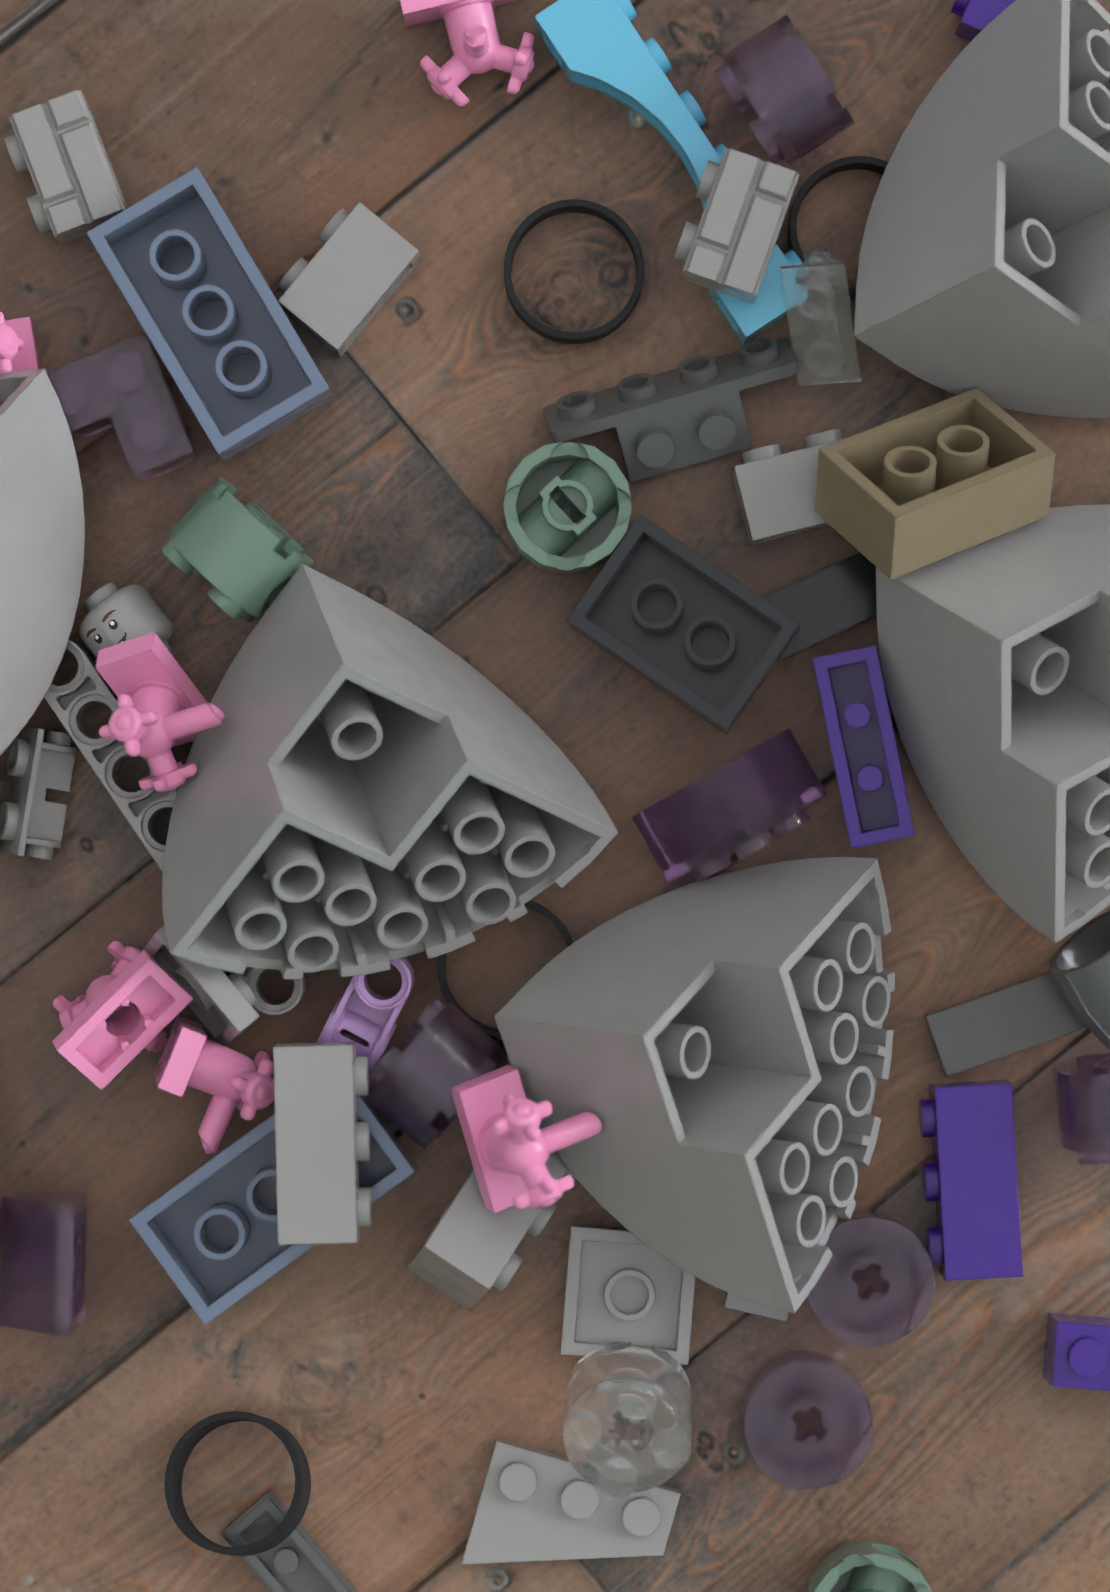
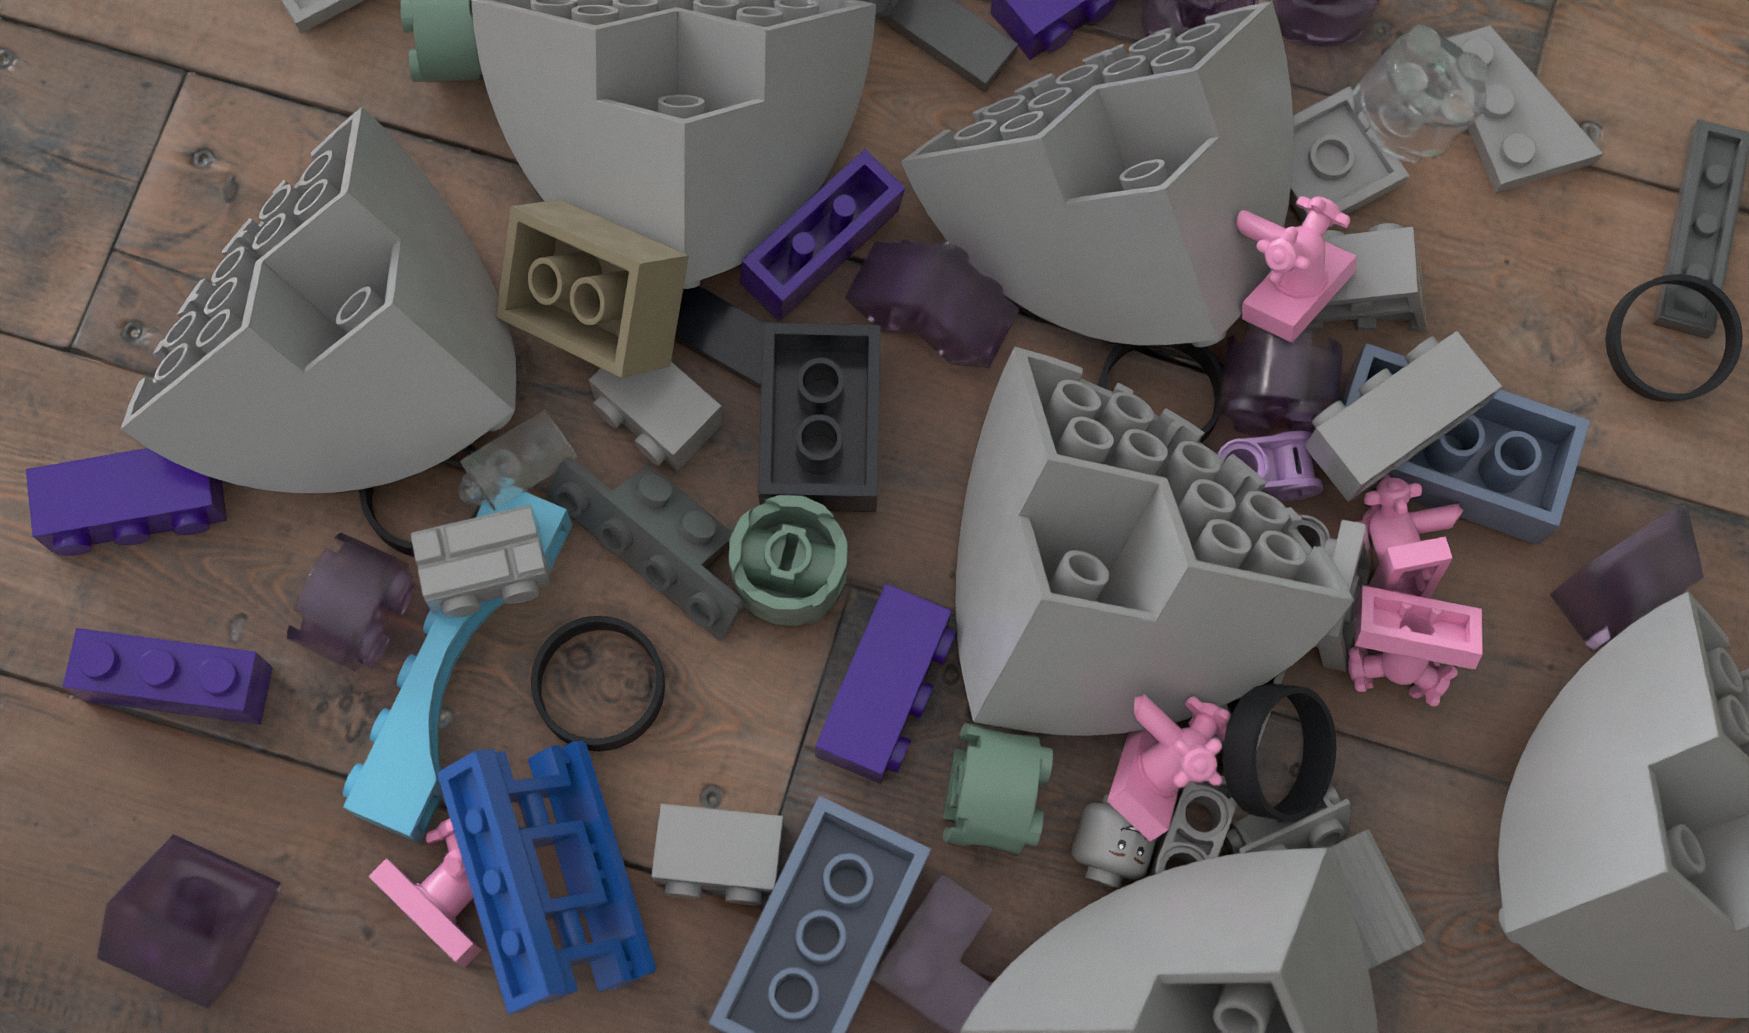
camera: 130 degrees left, 15 degrees down
(66, 848) = (1241, 751): none -> black tyre
(398, 523) = (885, 685): none -> dark purple brick
(430, 72) = (511, 885): none -> blue fence

